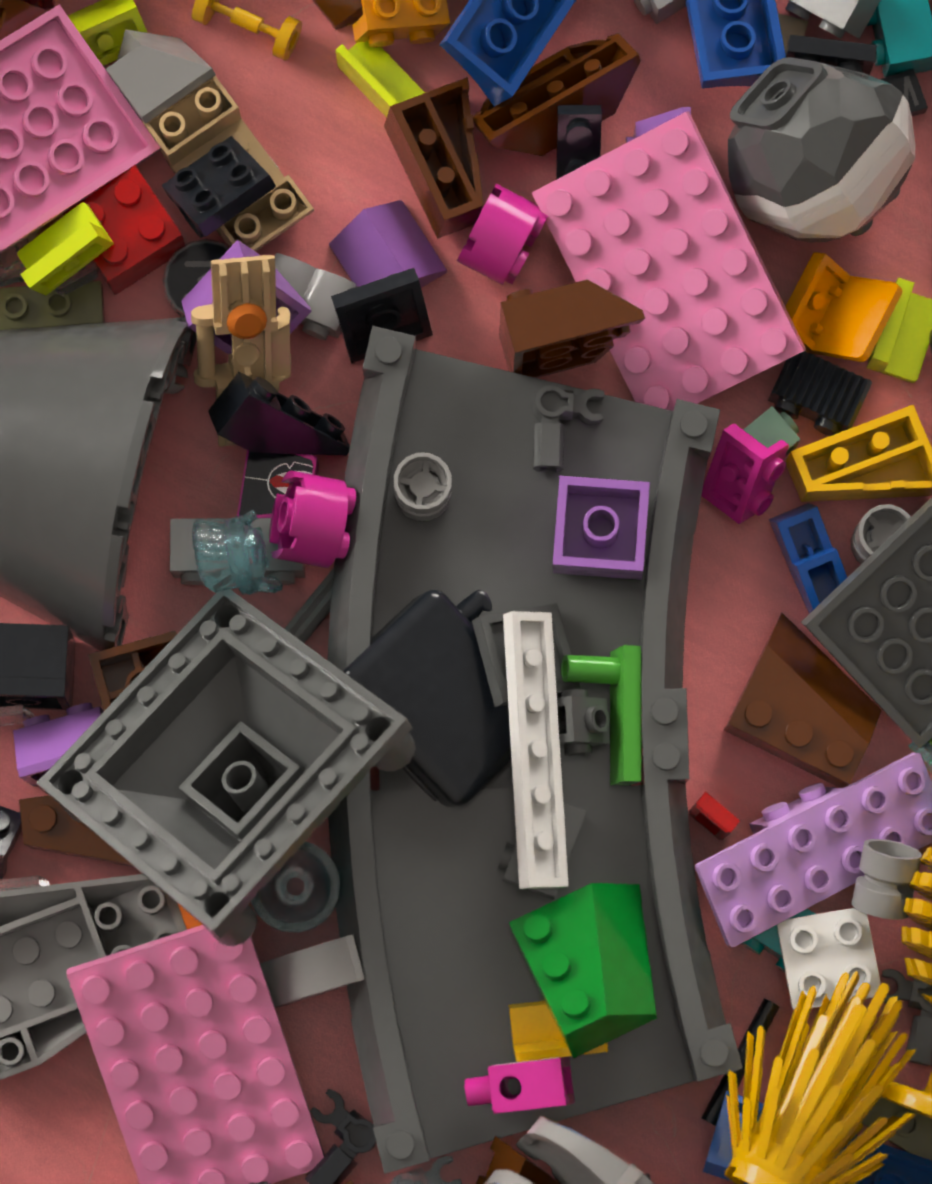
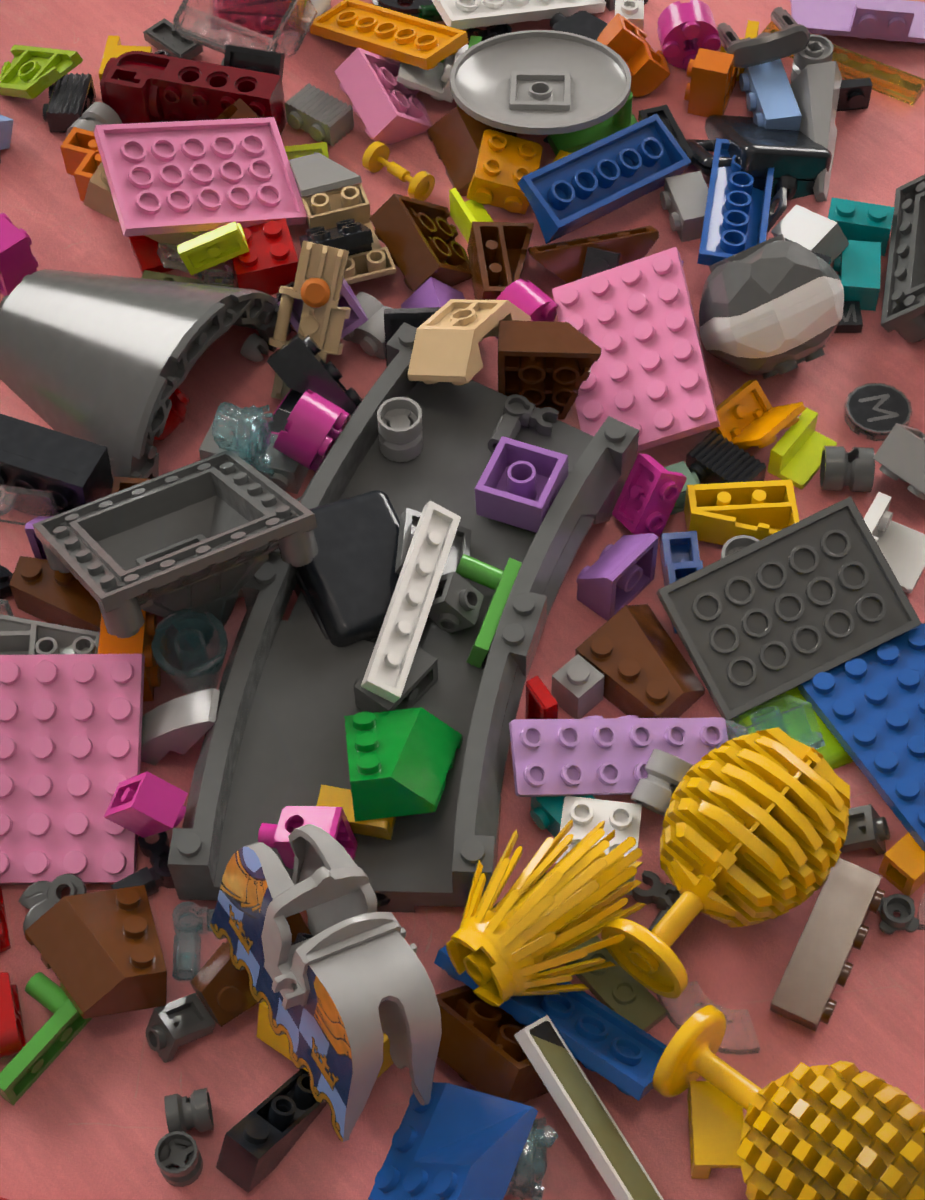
camera: 20 degrees right, 25 degrees down
(323, 1100) = (147, 805): none -> dark pink brick
(329, 145) = (421, 241): none -> reddish brown wedge
(452, 333) = (448, 340): none -> tan slope
(738, 592) = (618, 574): none -> medium lavender slope
(740, 761) = (577, 687): none -> light grey brick

